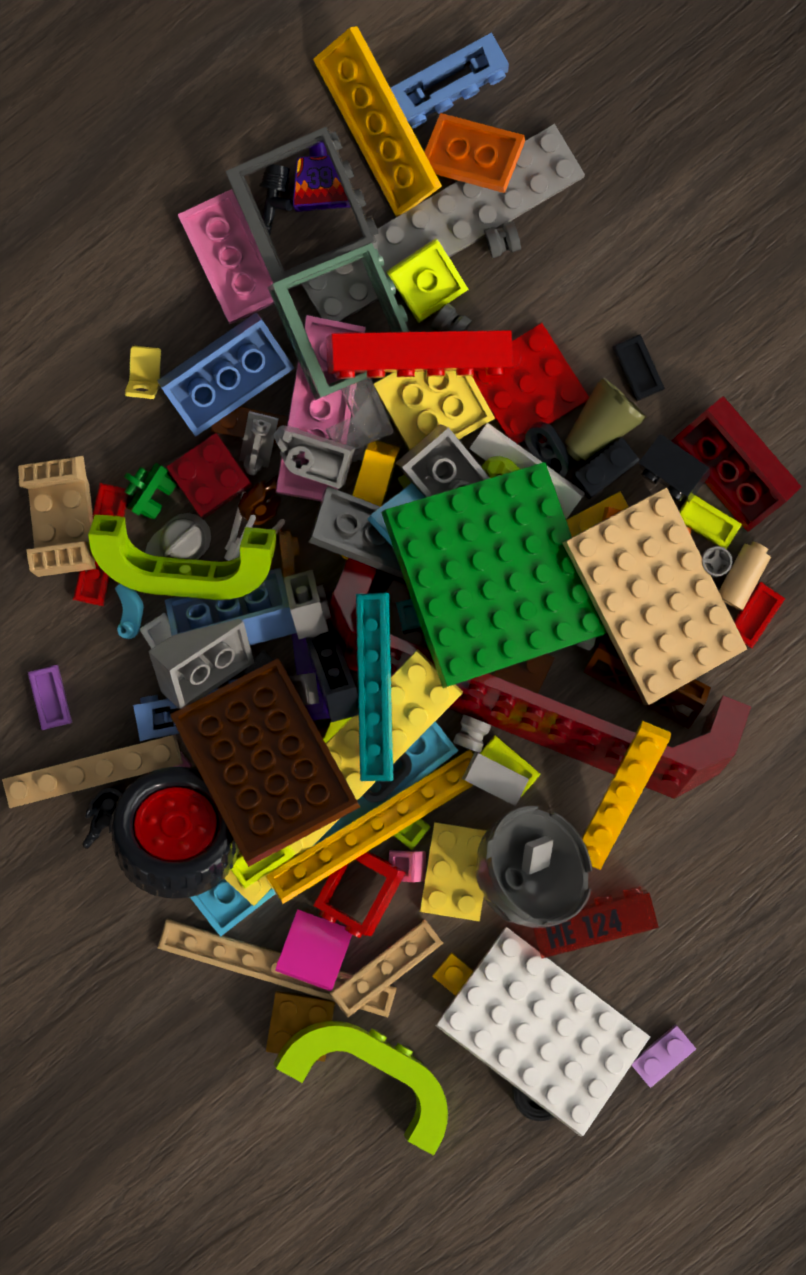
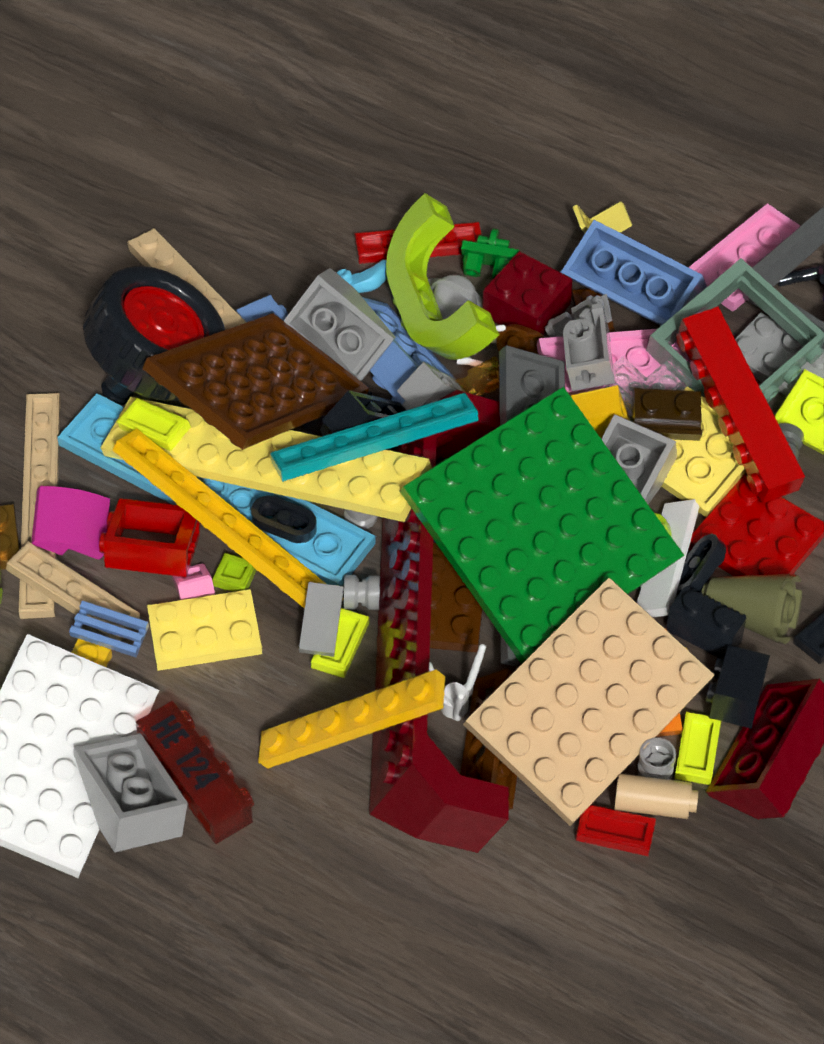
camera: 65 degrees right, 35 degrees down
(49, 697) = (250, 245): medium lavender tile -> none
(58, 515) = (461, 189): tan plate -> none
(399, 415) = (669, 412): none -> dark brown plate
(447, 959) = (113, 616): none -> medium blue tile
(537, 855) = (252, 682): light grey tile -> none
(543, 896) = (237, 665): dark grey rock -> none
(600, 695) = (457, 695): none -> white plant
(600, 981) = (130, 792): none -> light grey slope
(663, 1055) = (61, 897): lavender plate -> none

